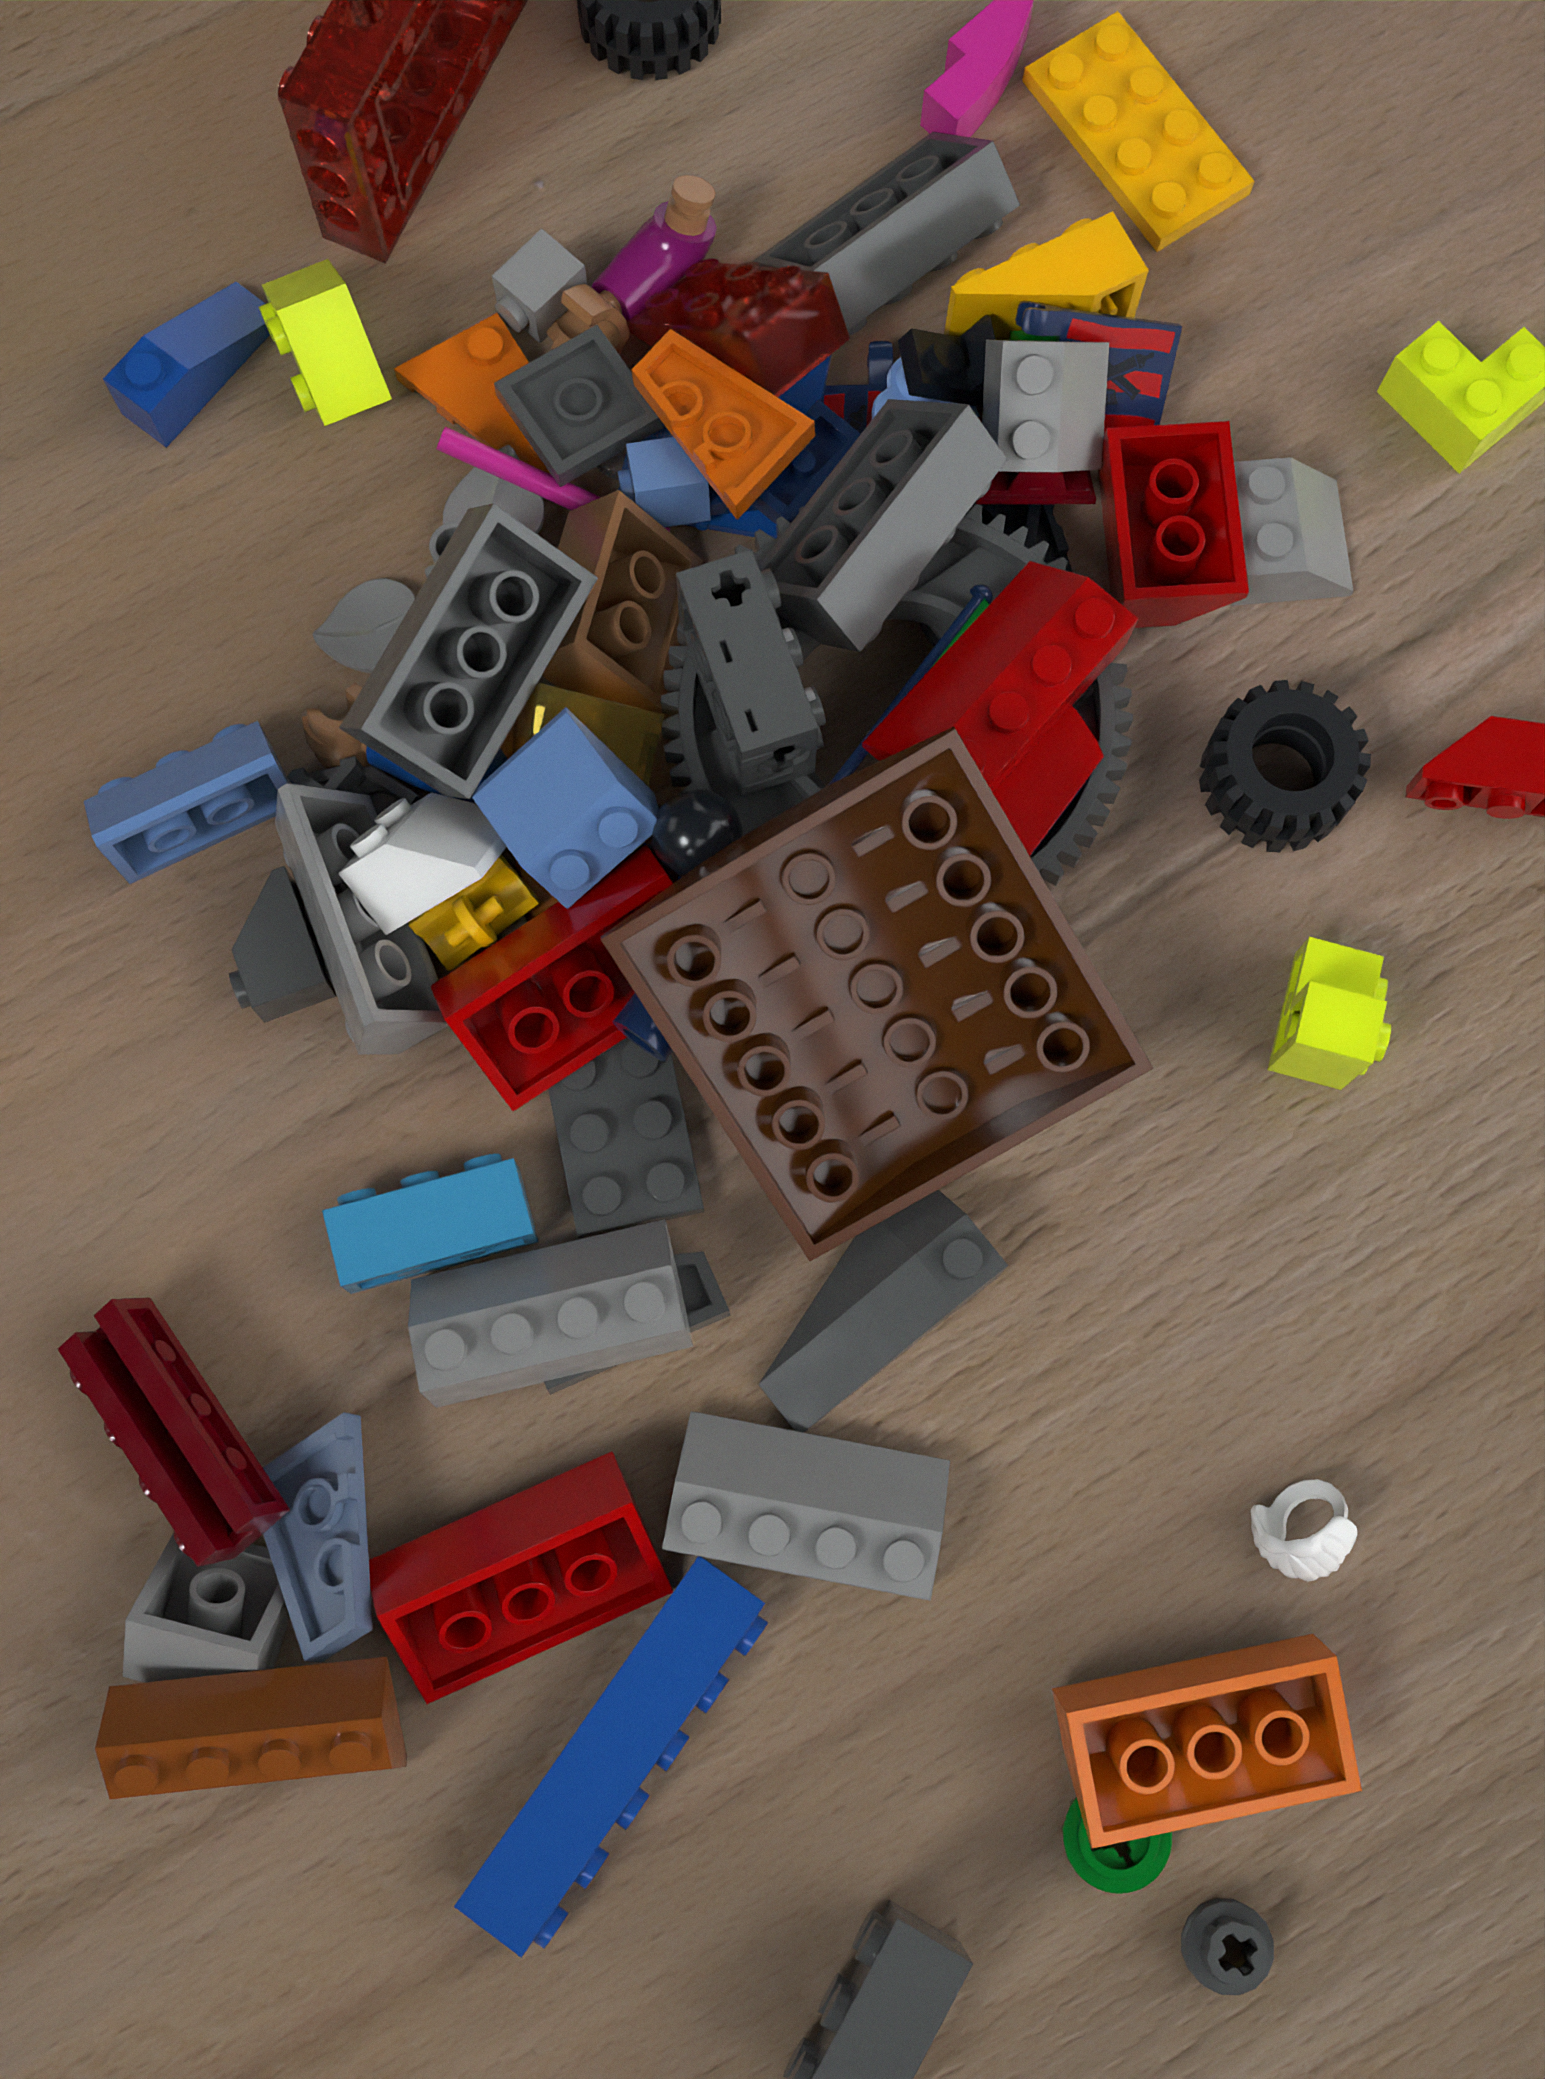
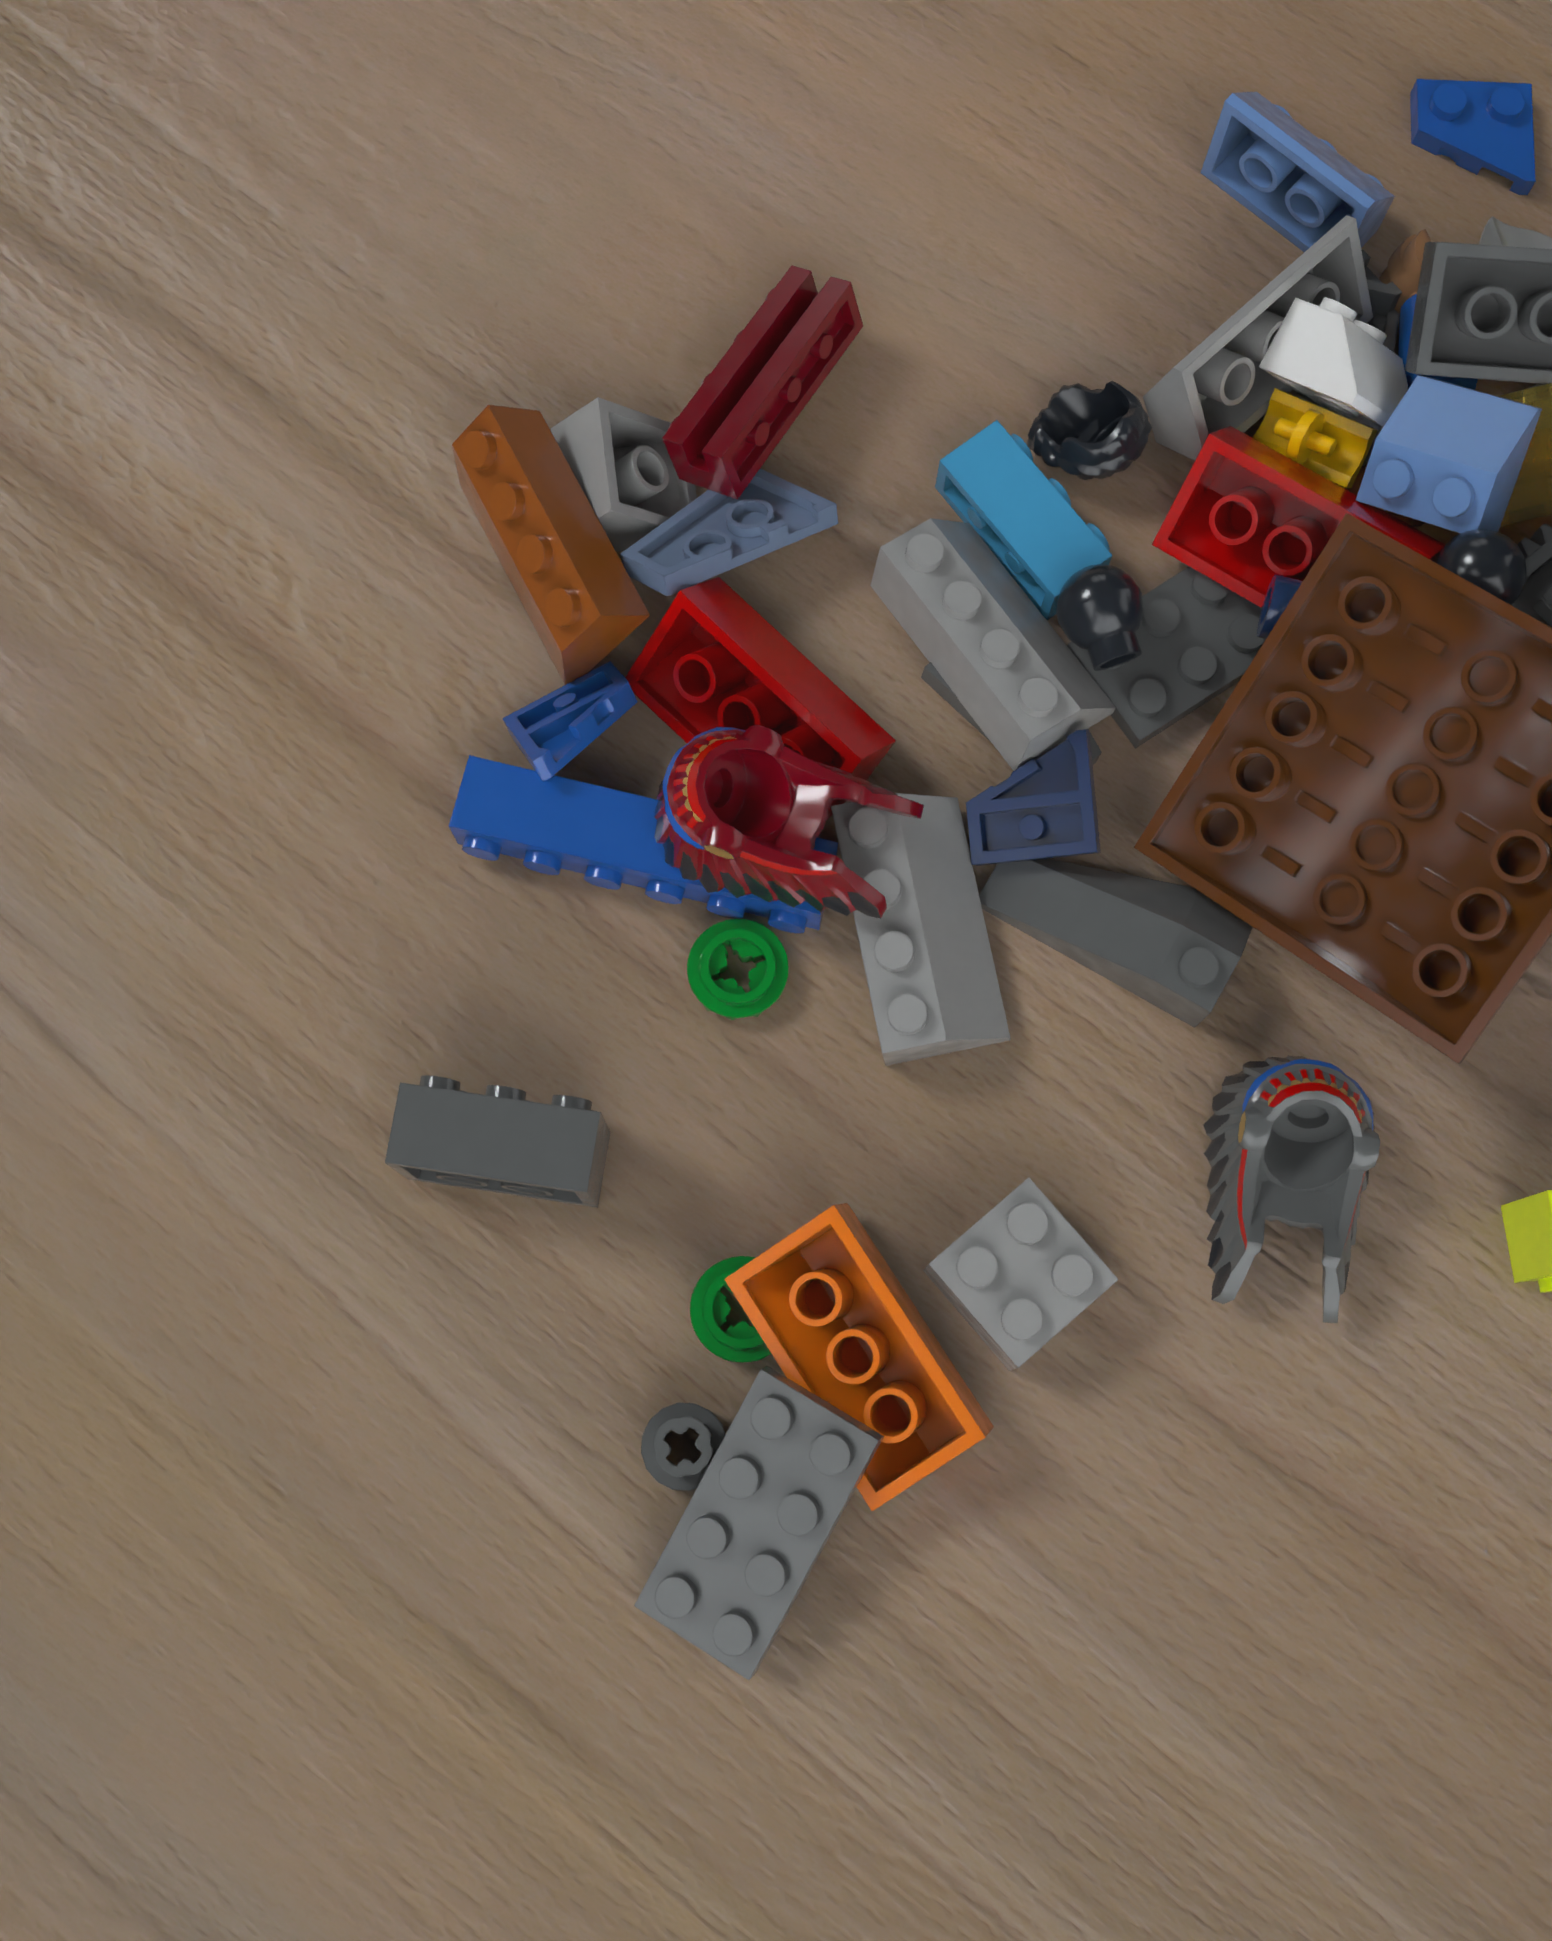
camera: 70 degrees right, 0 degrees up
(207, 600) = (1477, 126): none -> blue wing
(278, 954) = (1195, 300): dark grey slope -> none
(368, 1119) = (1090, 430): none -> black hair
(452, 1781) = (570, 718): none -> blue wing
(572, 1195) = (1101, 613): none -> black piece
(640, 1631) = (748, 815): none -> dark red piece
(740, 1339) = (1039, 810): none -> dark blue wing
(802, 1726) = (750, 943): none -> green gear
(1162, 1246) = (1292, 1149): none -> dark grey piece
(1184, 1552) = (1020, 1275): none -> light grey brick
(1309, 1556) = (1069, 1398): white piece -> none
(1331, 1905) = (758, 1521): none -> dark grey plate

